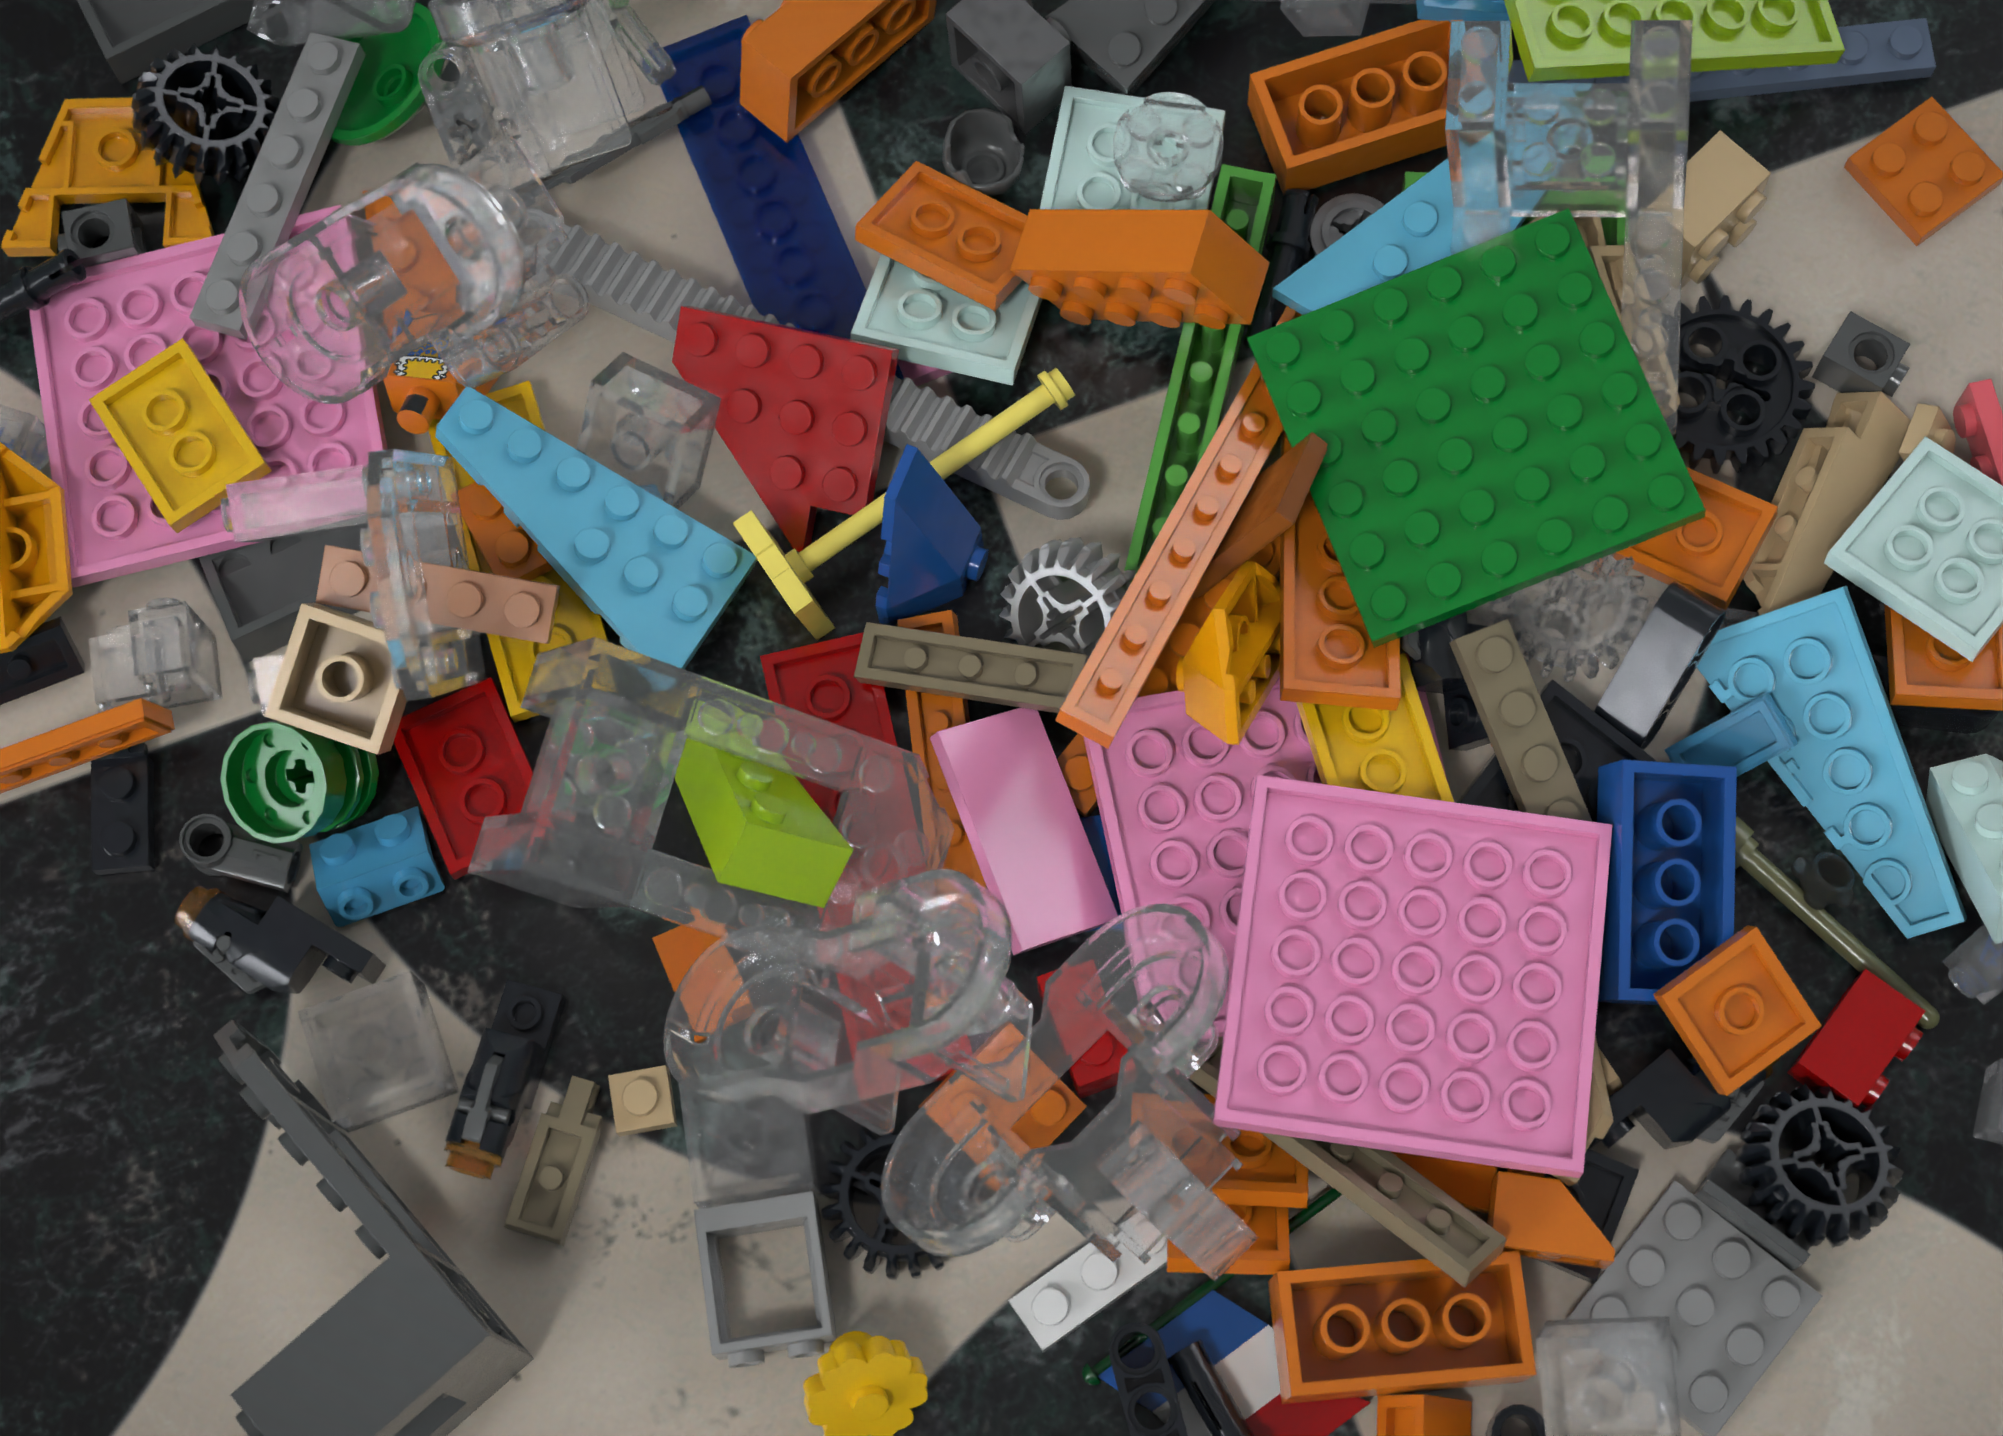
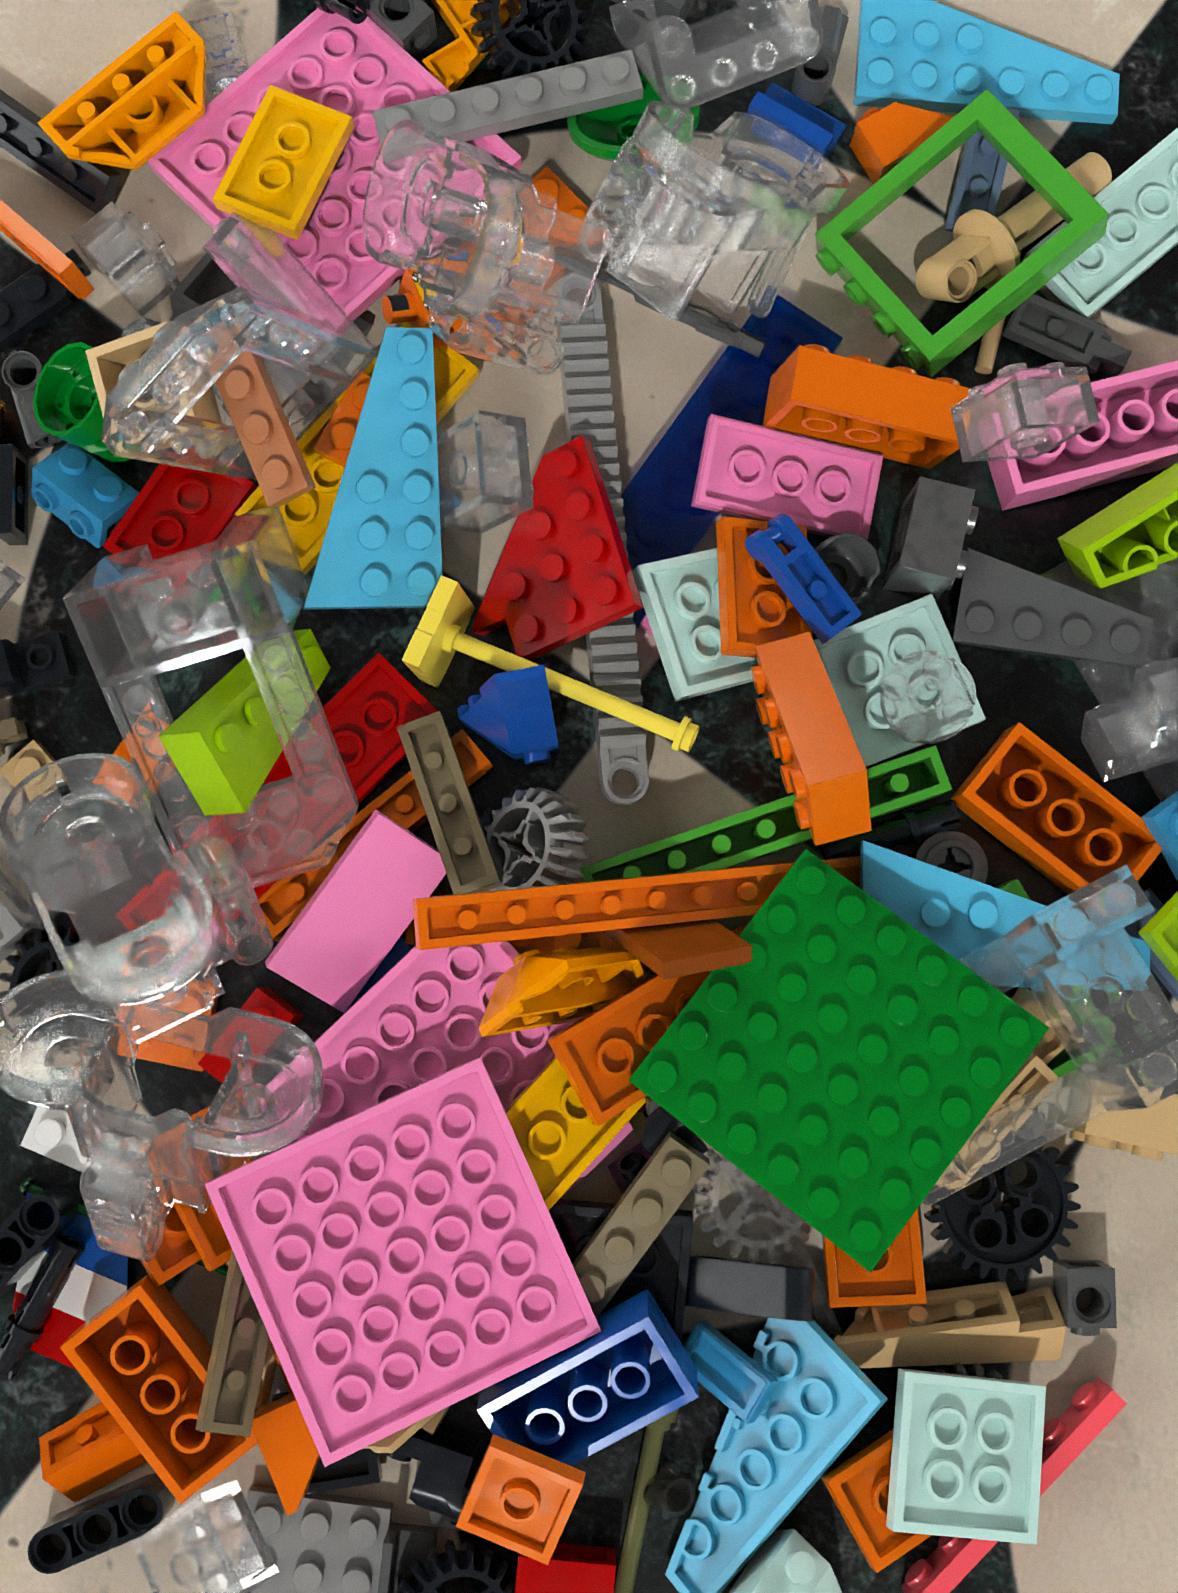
camera: 50 degrees right, 10 degrees up
(852, 152) = (774, 472): none -> bright pink tile
(968, 187) = (803, 577): none -> blue plate
(1928, 422) = (1057, 1376): tan plate -> none

